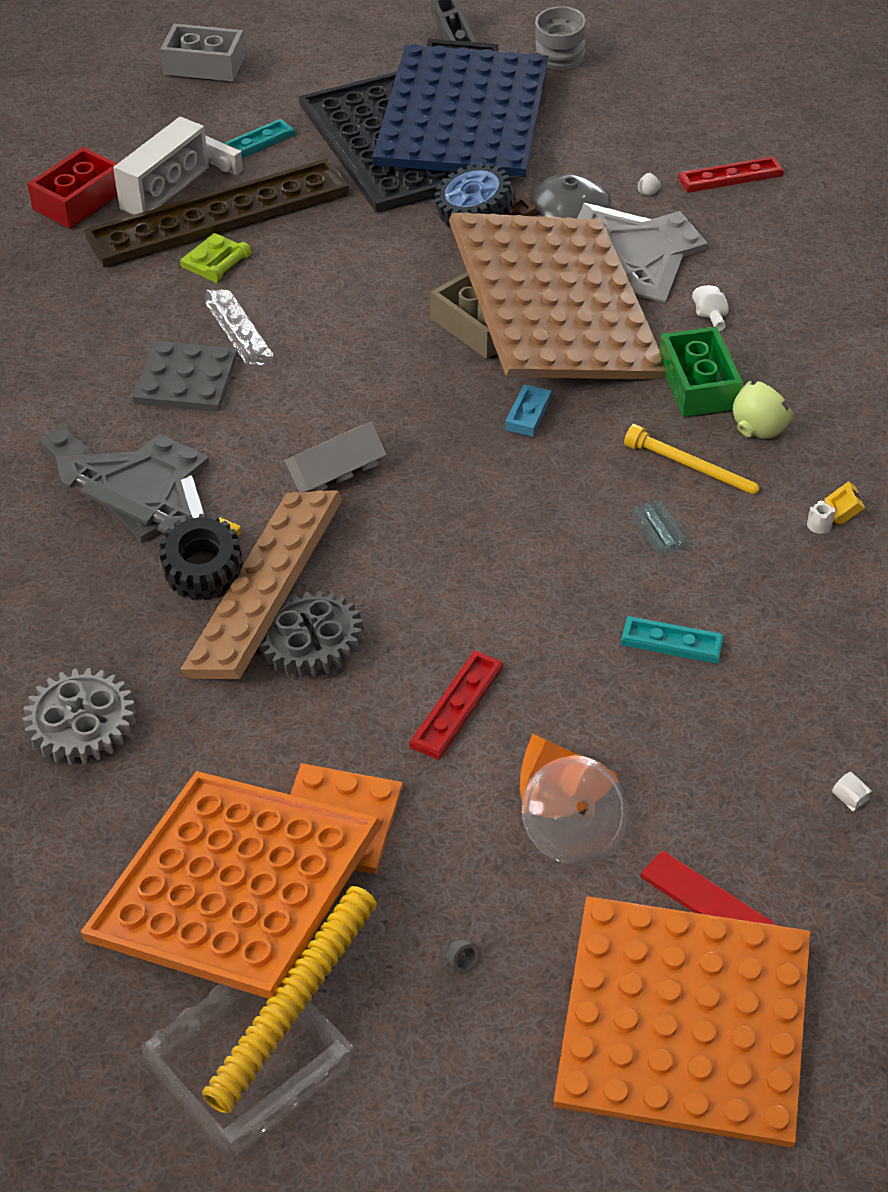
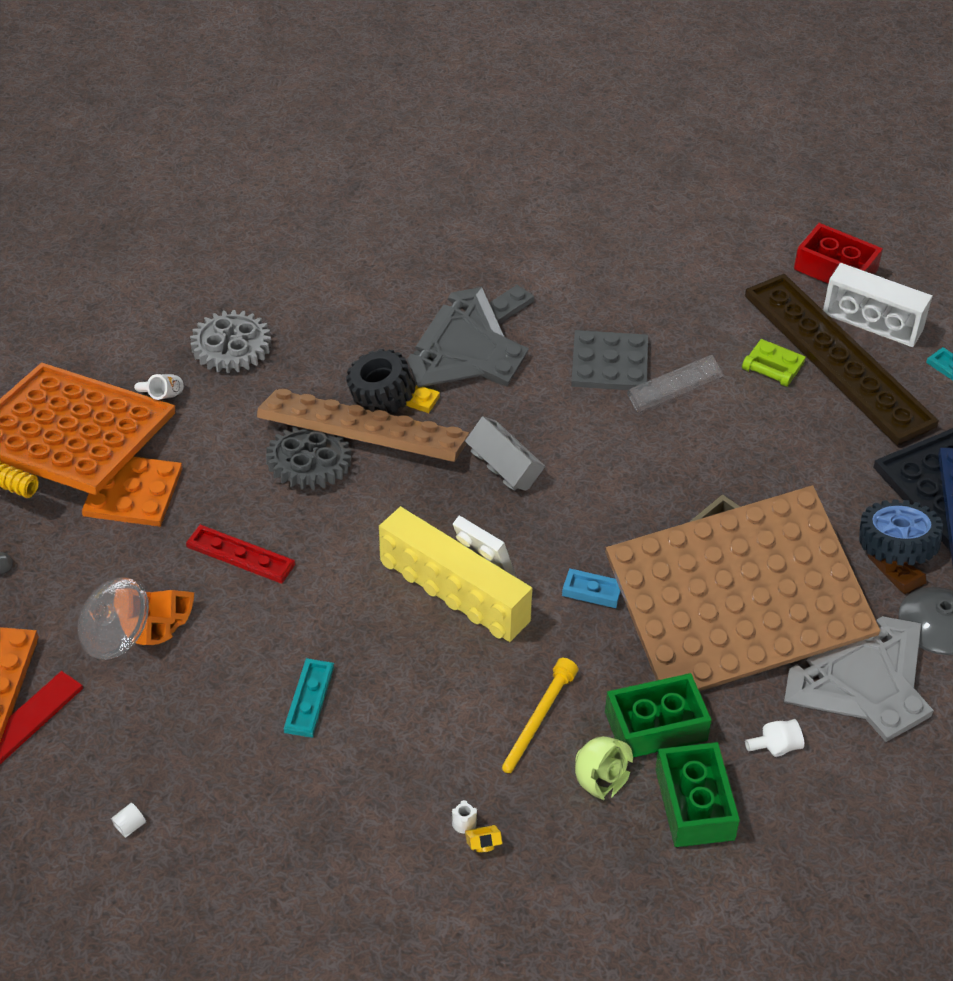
camera: 85 degrees right, 0 degrees up
(164, 782) = (161, 386): none -> white piece
(224, 156) = (923, 343): white plate -> none
(502, 464) = (483, 544): none -> white plate
(518, 501) = (455, 574): none -> light yellow brick
(638, 515) = (446, 685): clear light blue tile -> none
(788, 353) = (696, 794): none -> green brick

